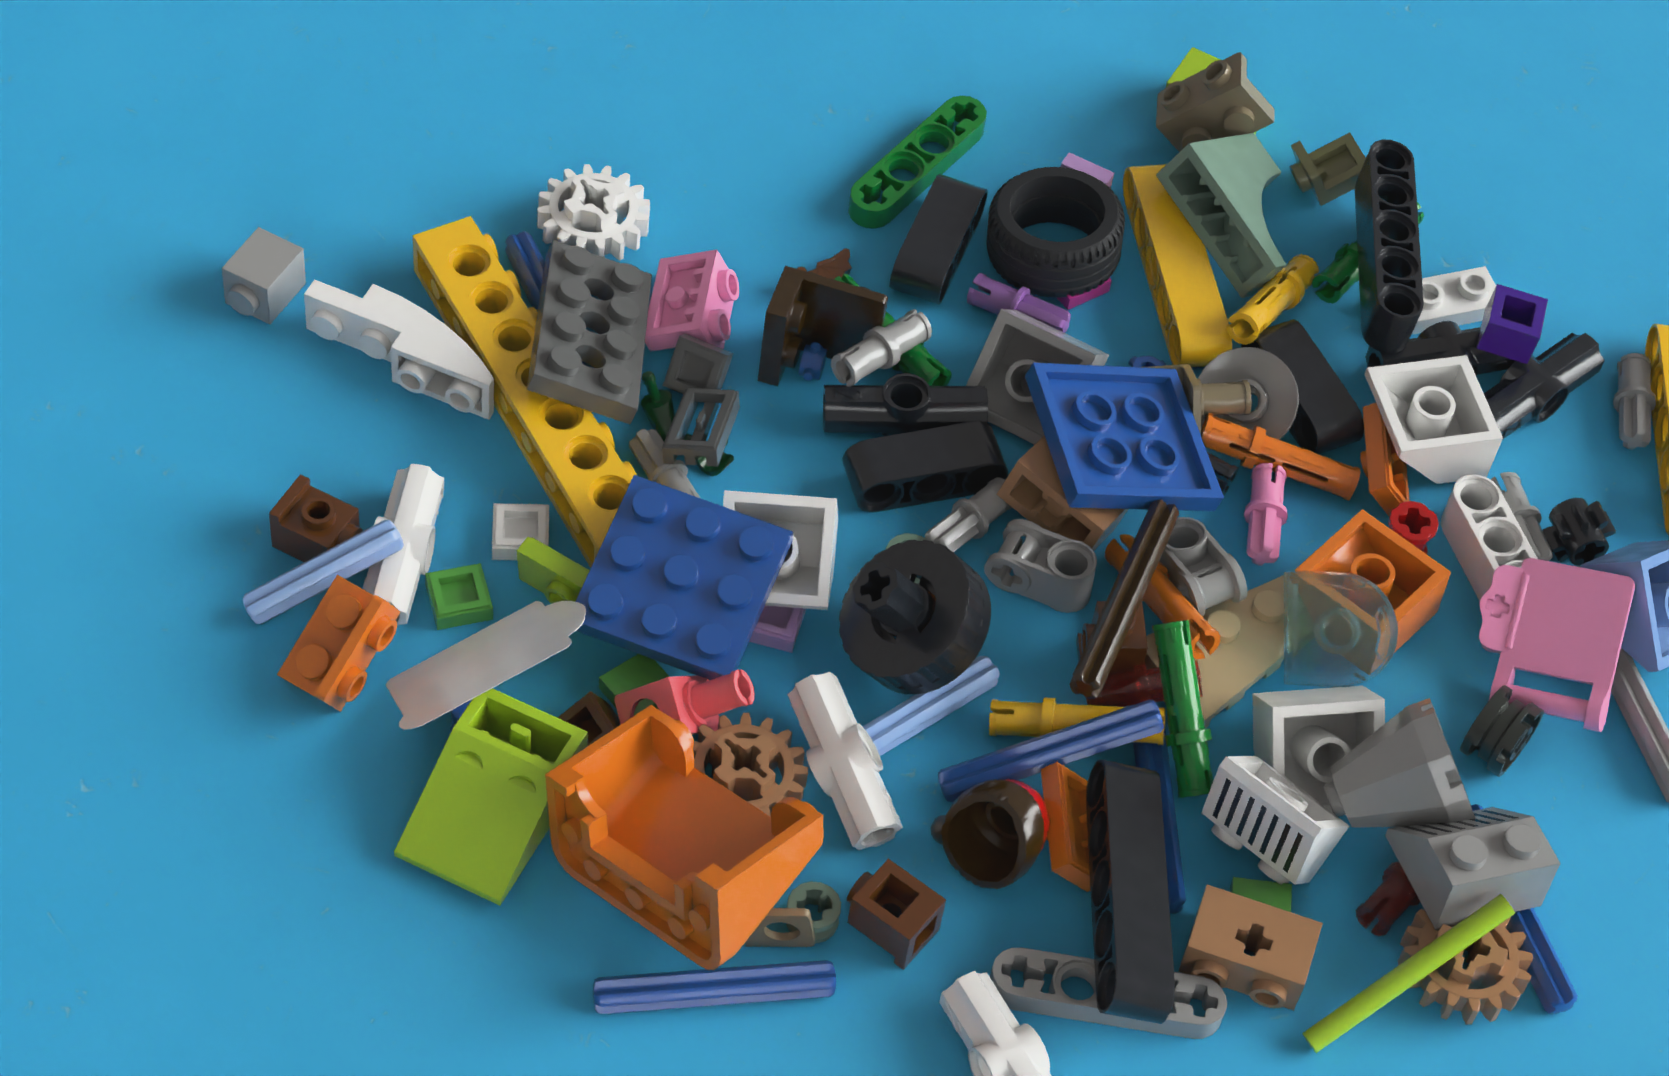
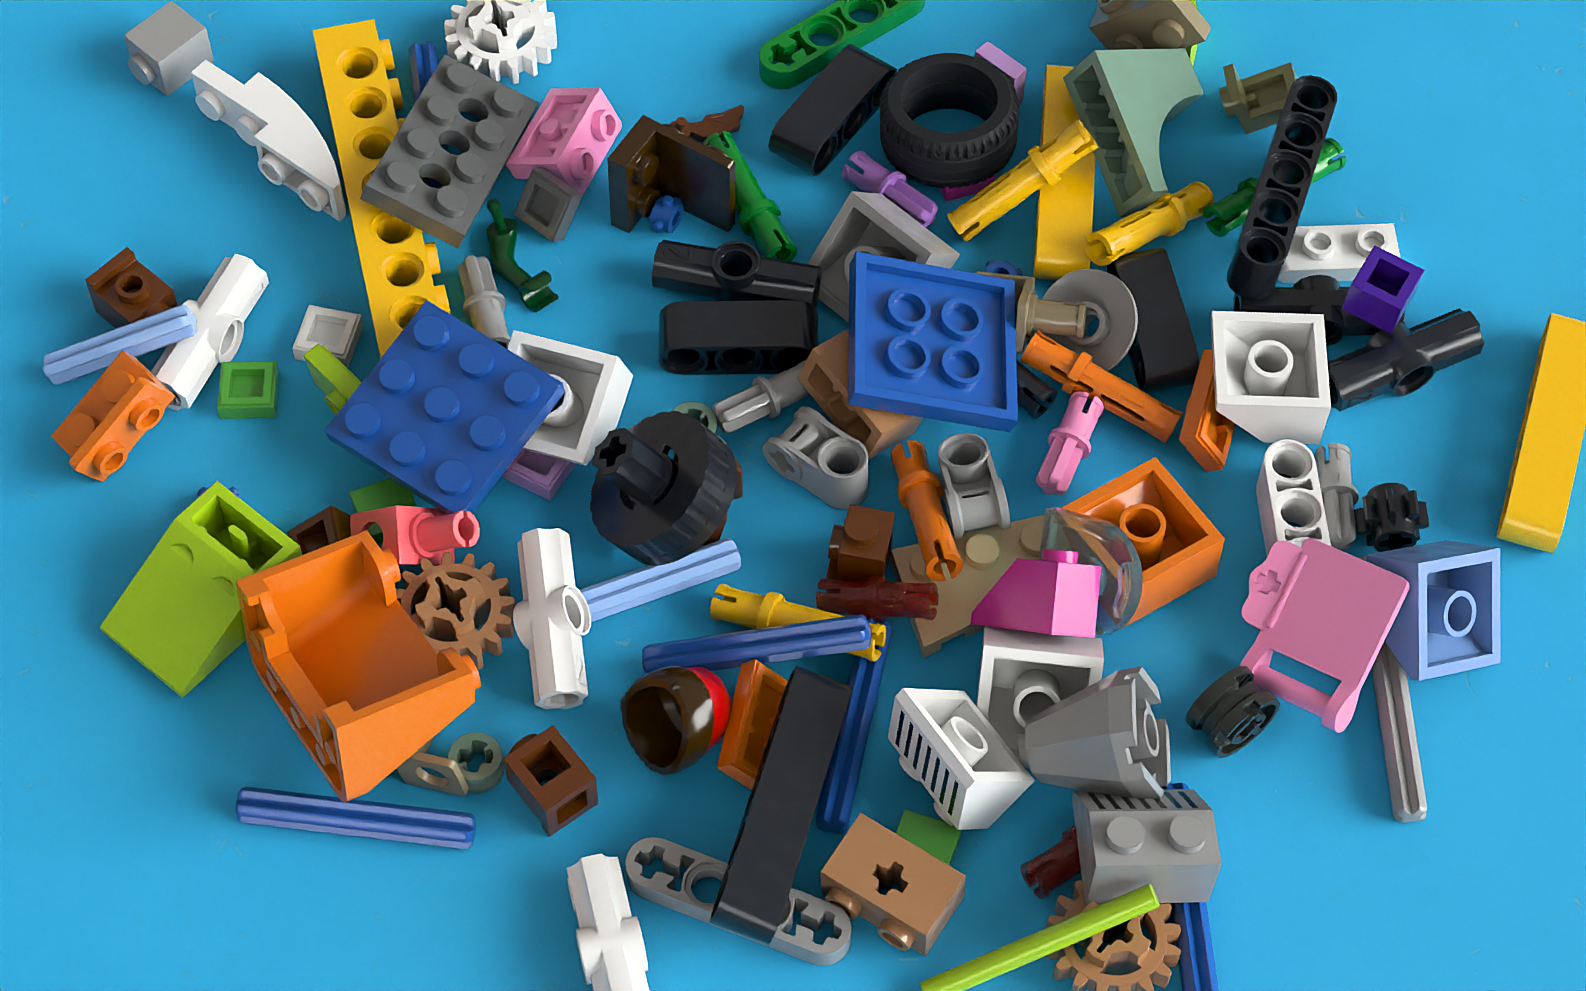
camera: 20 degrees right, 5 degrees up
(484, 660) = (233, 458): white sticker -> none
(698, 446) = (535, 264): dark grey tile -> none
(881, 347) = (724, 211): light grey pin -> none
(1124, 600) = (868, 508): dark brown axle -> none
(1154, 270) = (1029, 175): none -> yellow pin
(1183, 706) = (902, 621): green pin -> none
(1307, 654) = (1044, 596): none -> dark pink slope
(1414, 523) = (1211, 486): red bush -> none
(1634, 400) = (1506, 390): light grey axle -> none

